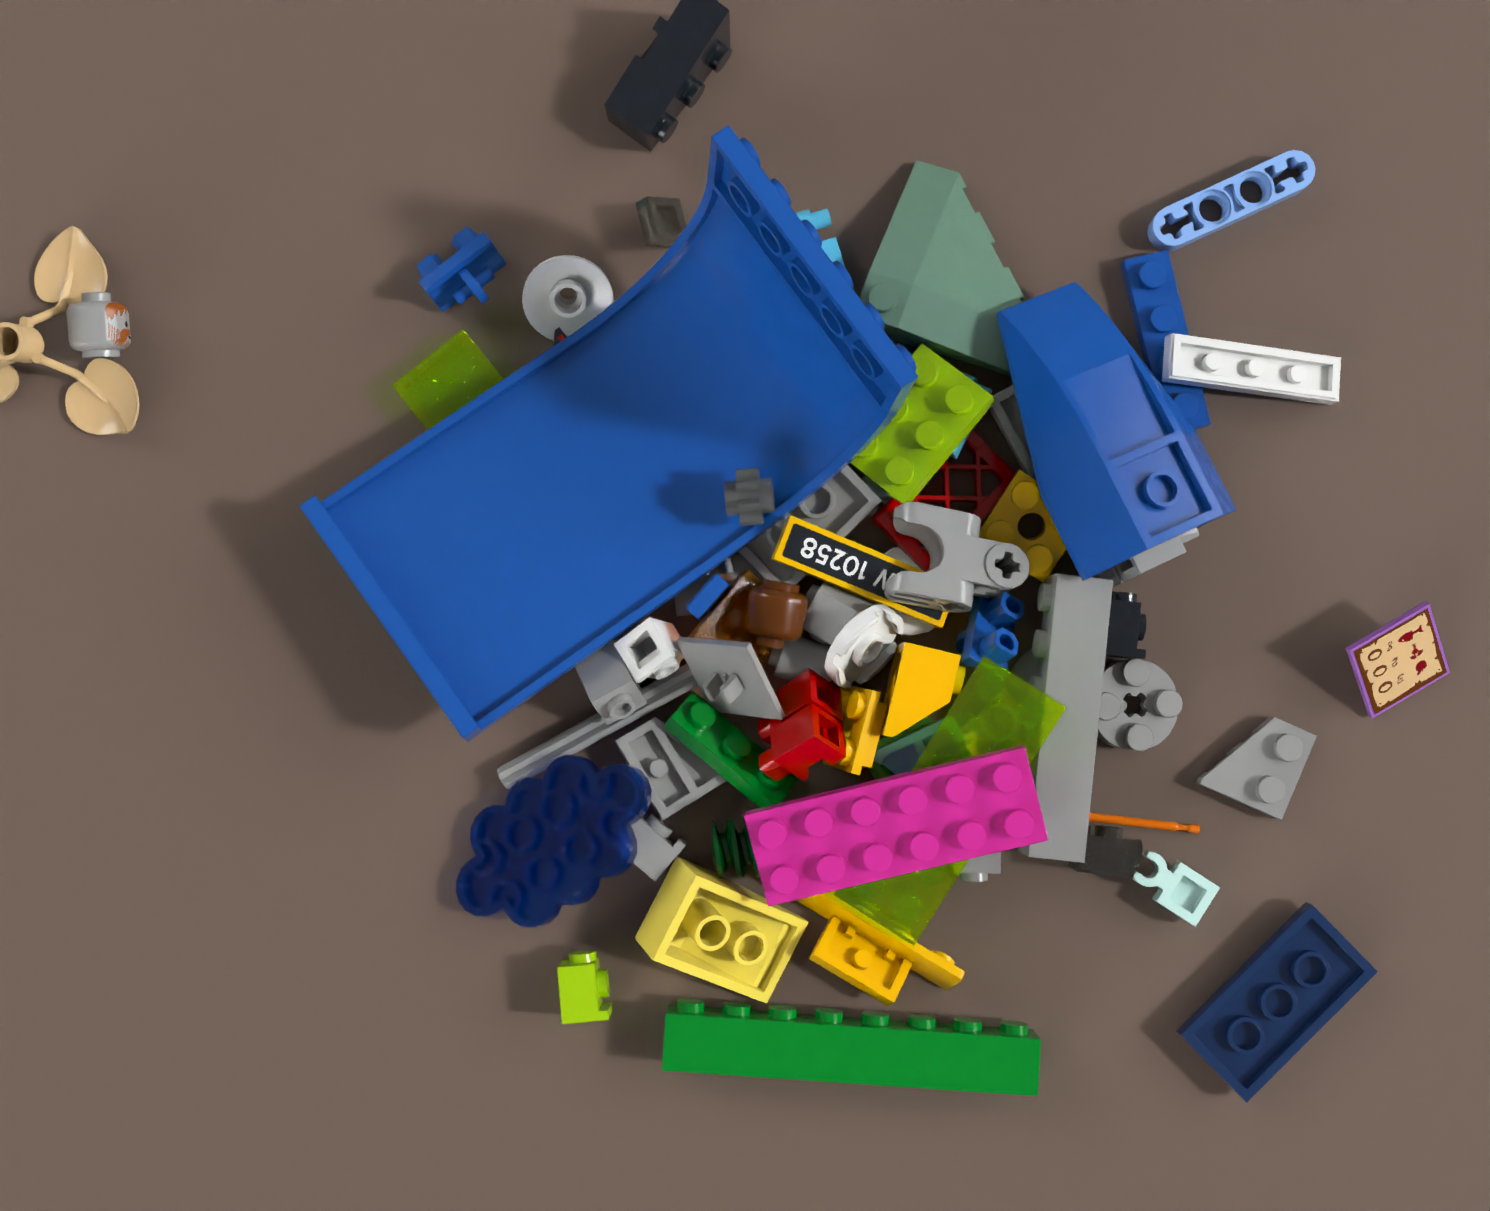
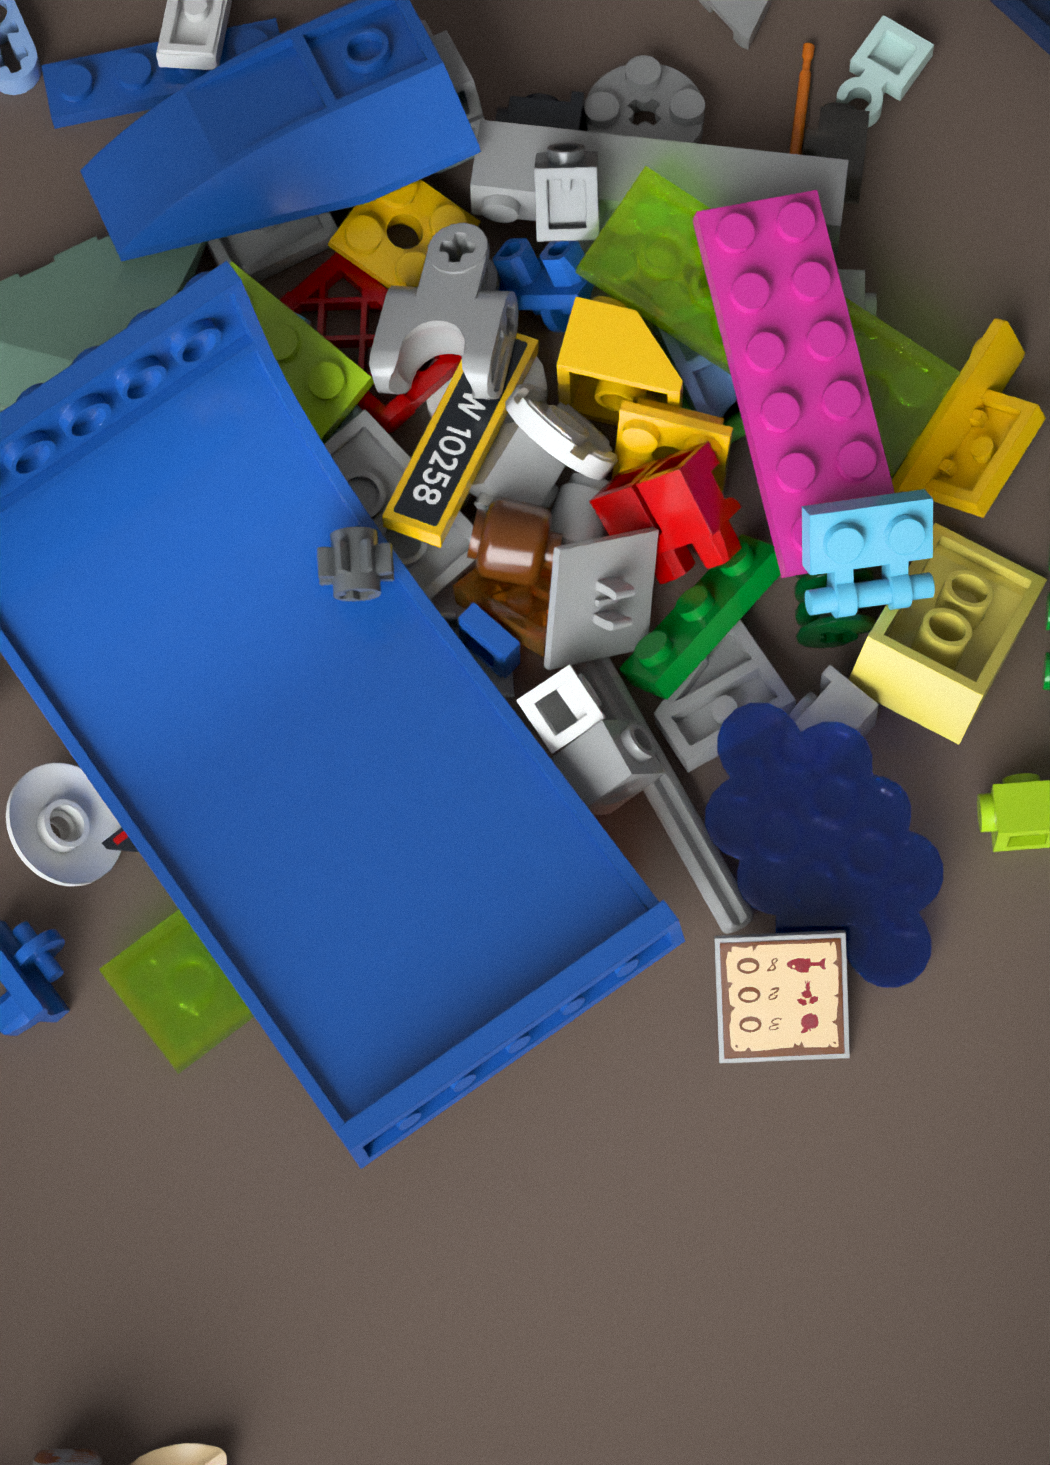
camera: 85 degrees left, 15 degrees down
(444, 810) = (782, 996): none -> piece
(768, 876) = (862, 535): none -> medium azure plate
(1048, 647) = (566, 193): none -> bracket

